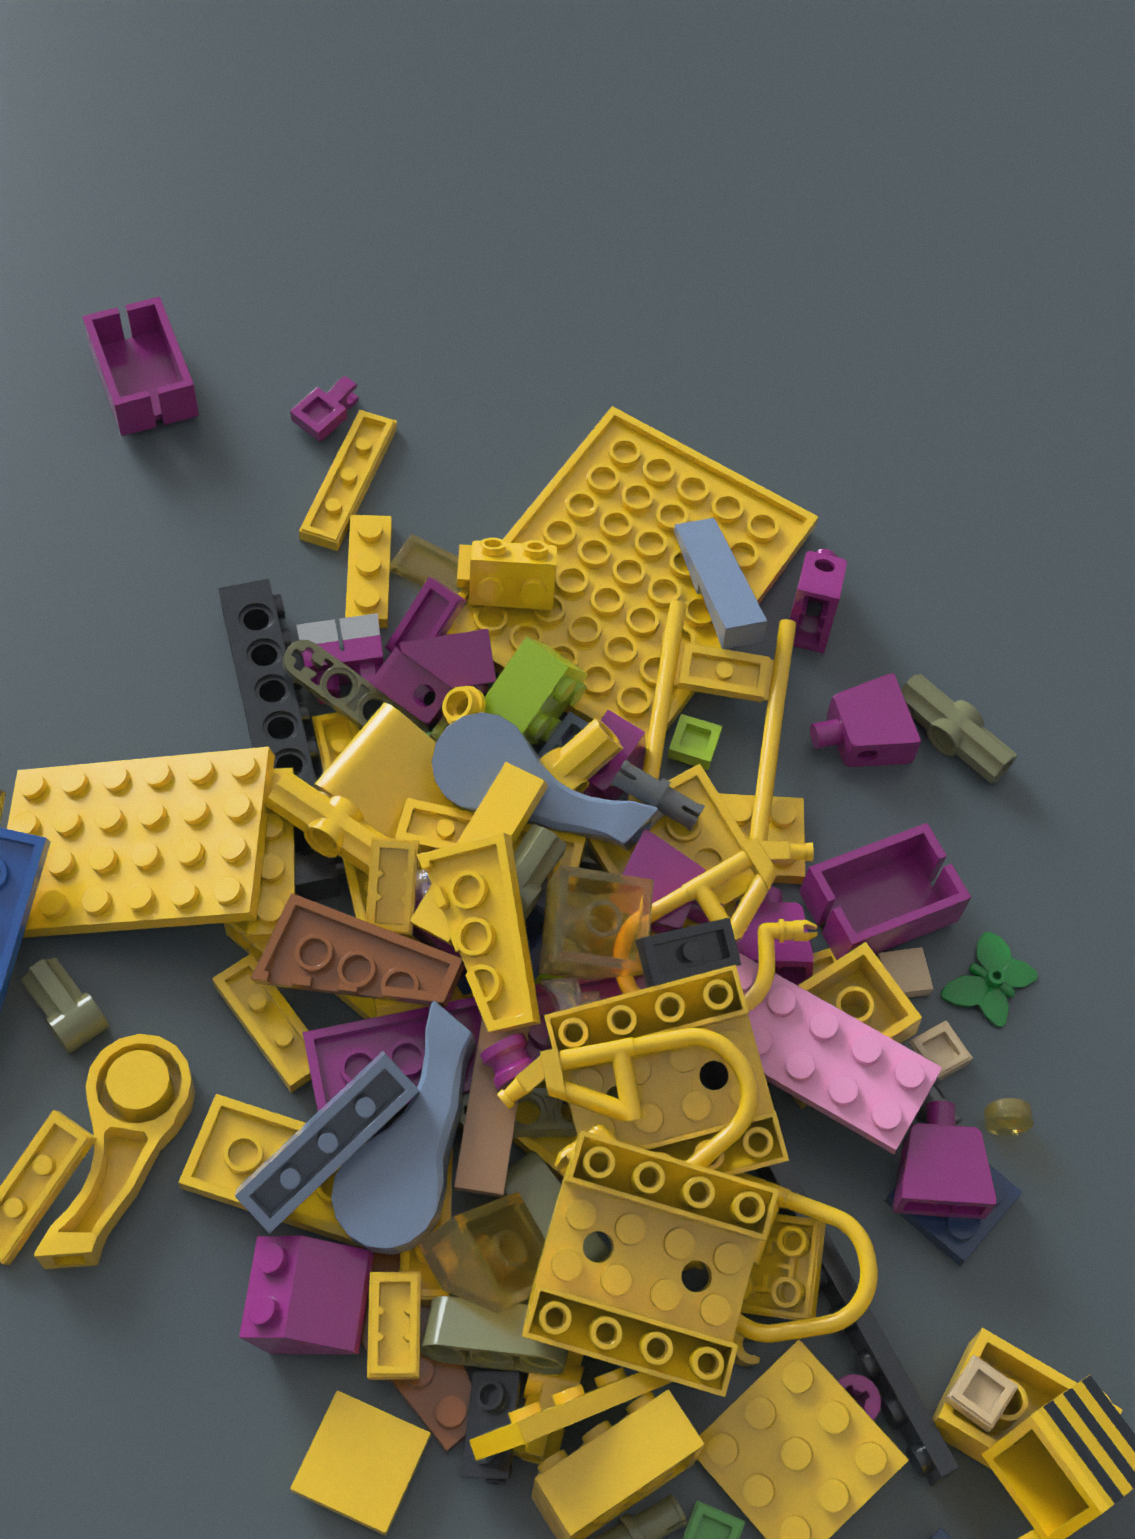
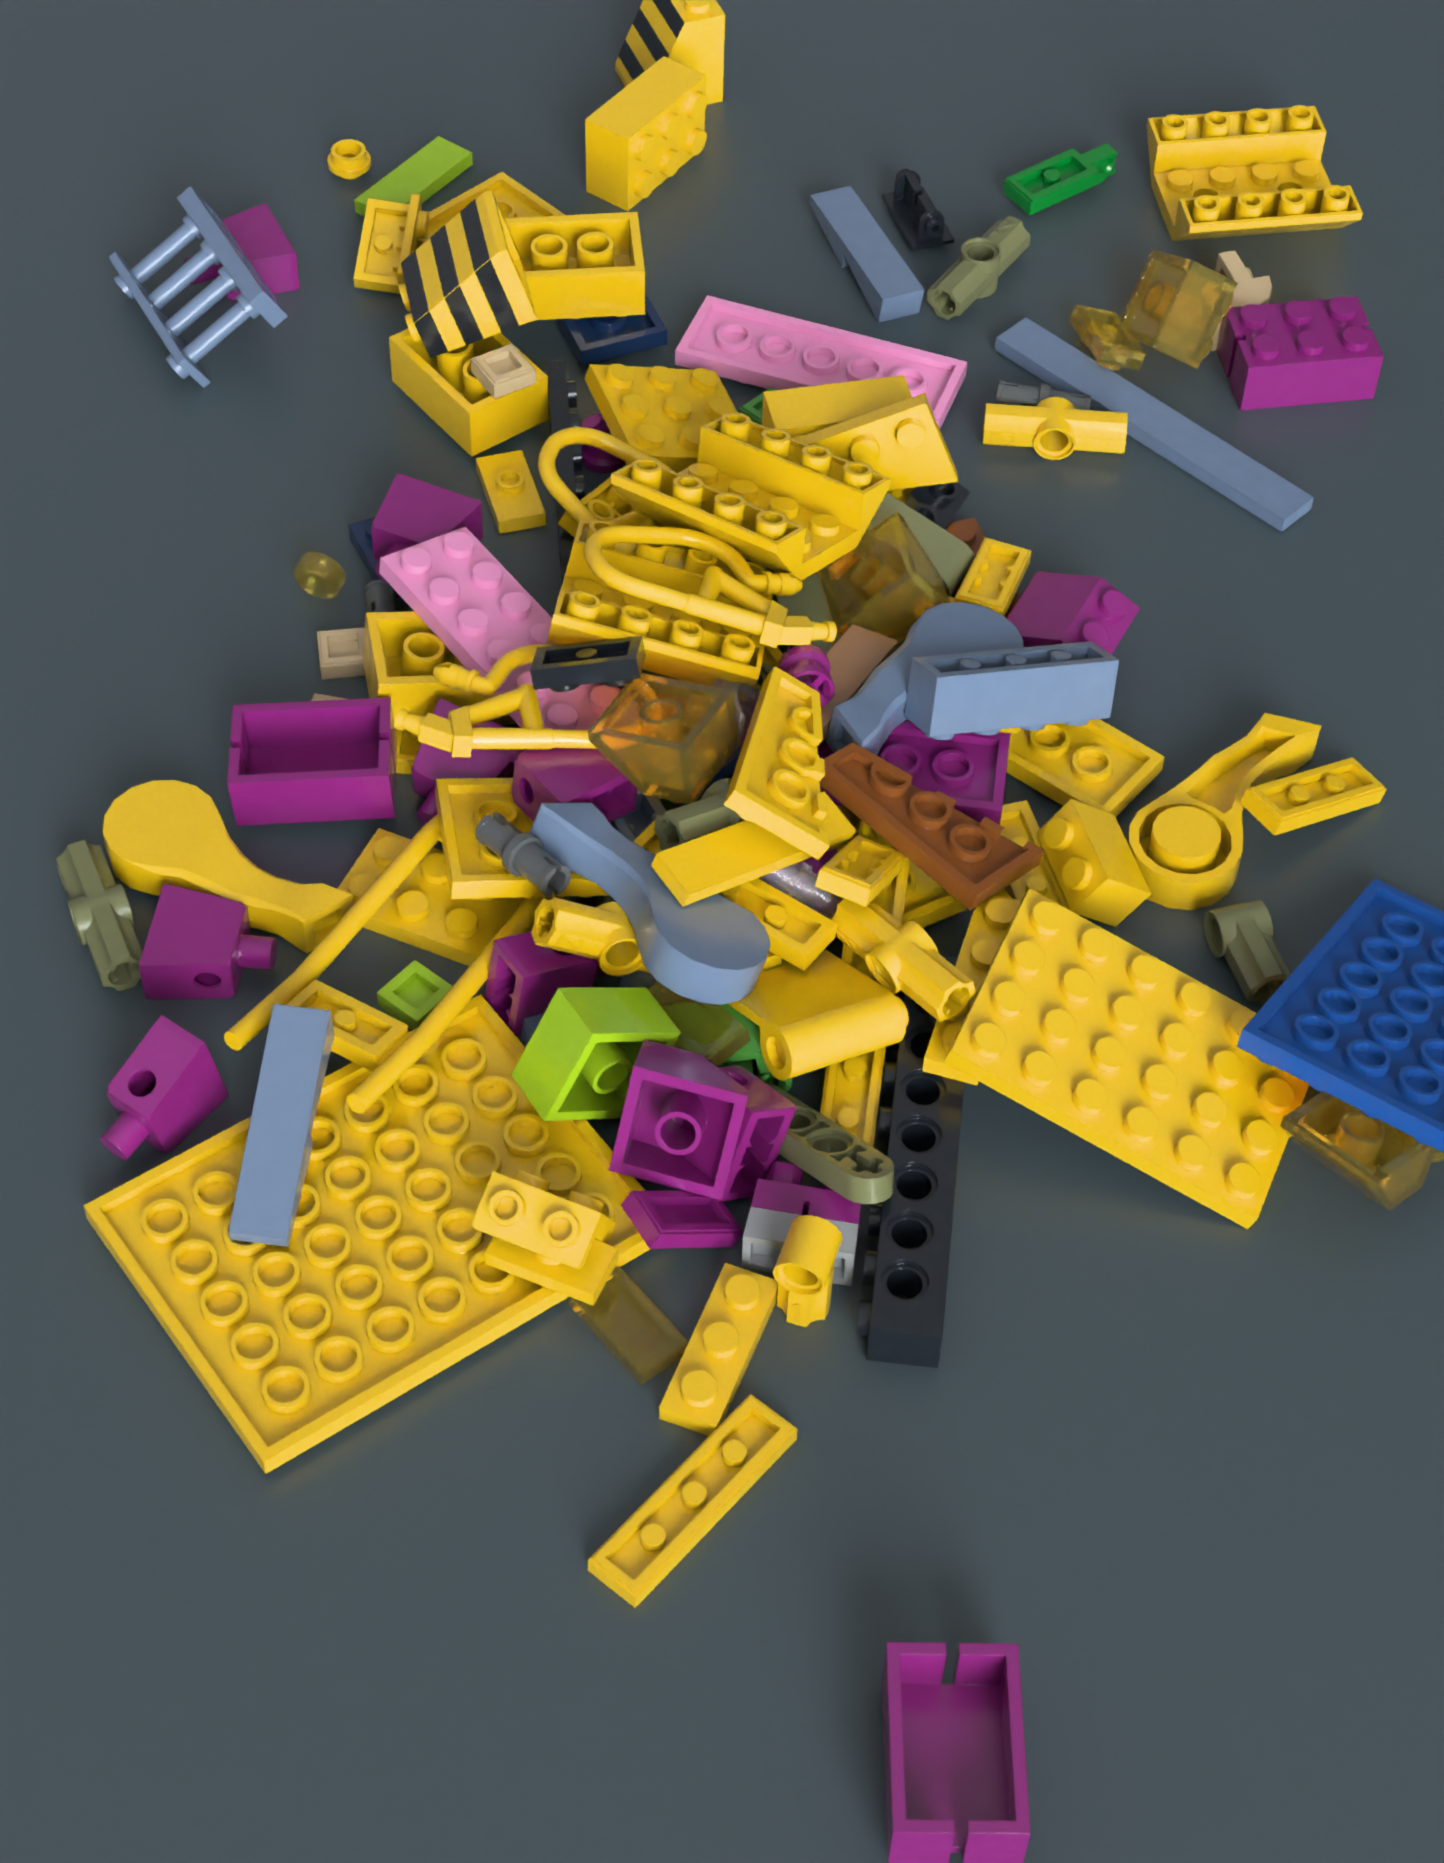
camera: 155 degrees left, 10 degrees down
(213, 1029) = (1093, 863): none -> yellow brick
(323, 412) = (691, 1605): magenta plate -> none
(324, 593) = (807, 1269): none -> yellow piece
(361, 1462) = (1055, 526): yellow tile -> none
(463, 702) = (696, 1025): yellow plate -> none
(911, 1310) = (510, 492): none -> yellow plate
(946, 789) = (177, 838): none -> yellow animal
(992, 981) = (253, 685): green piece -> none

